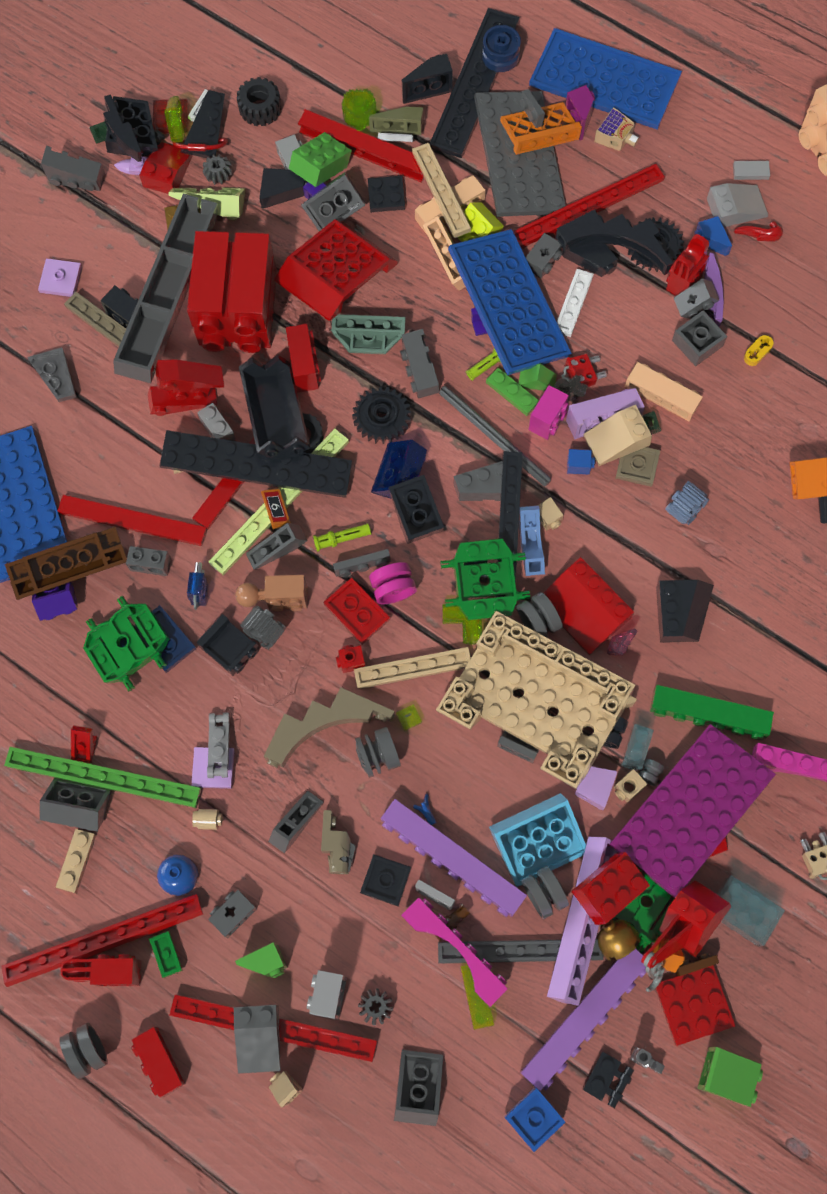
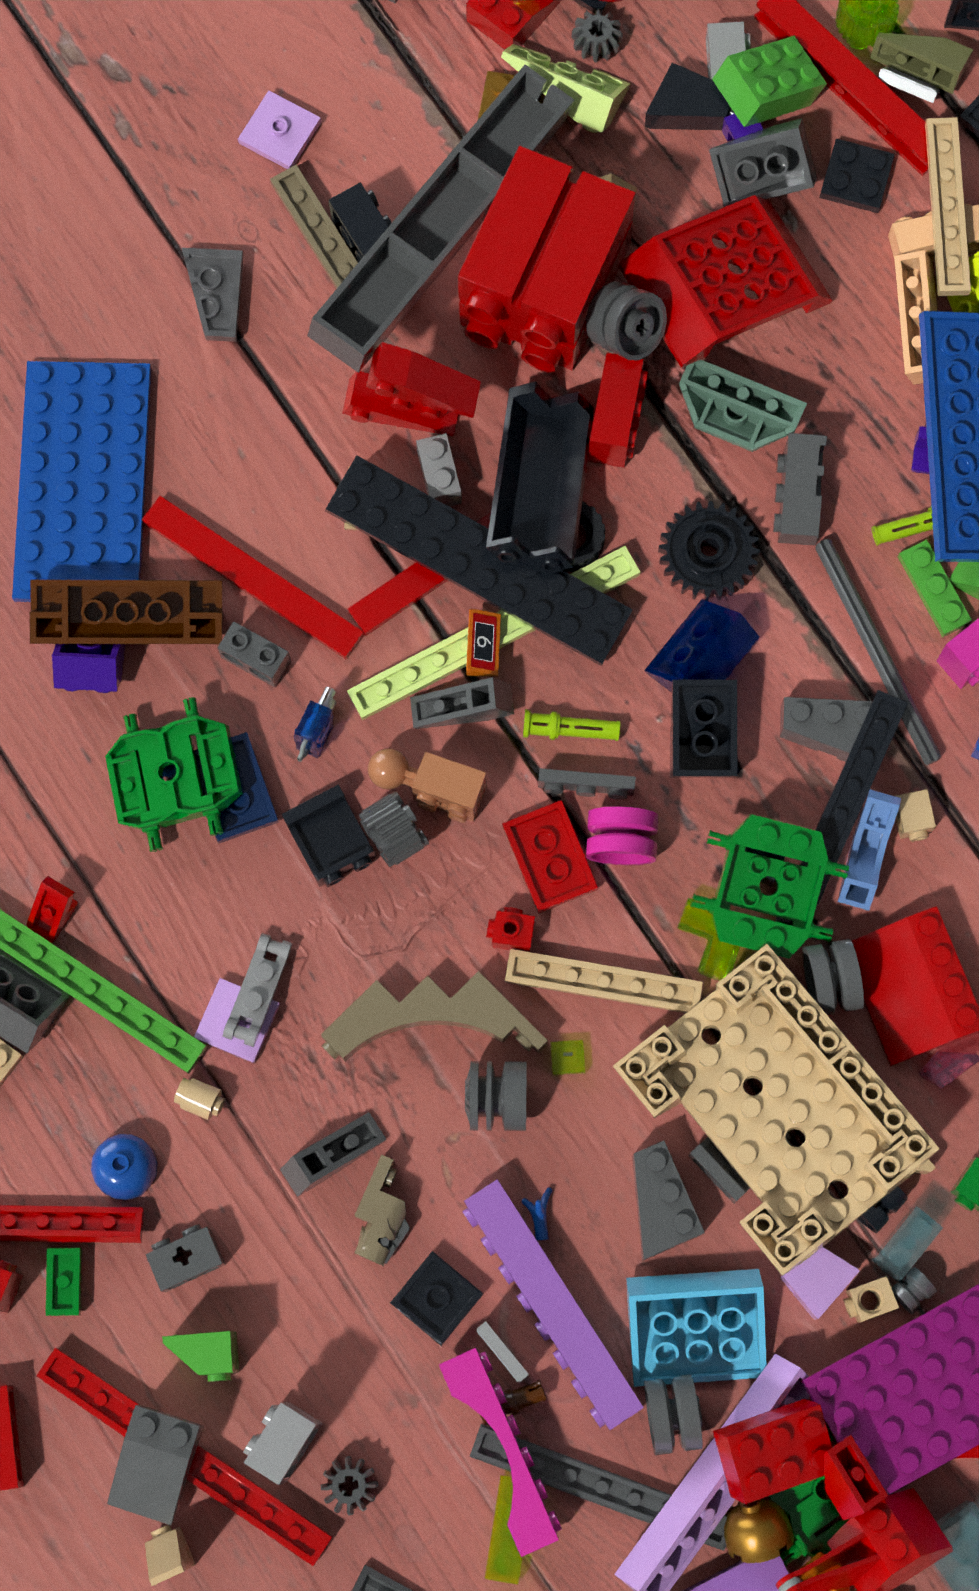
camera: 20 degrees right, 5 degrees up
(289, 305) = (626, 320): none -> dark grey wheel
(493, 777) = (663, 1203): none -> dark grey wedge
(659, 887) = (851, 1480): none -> red slope

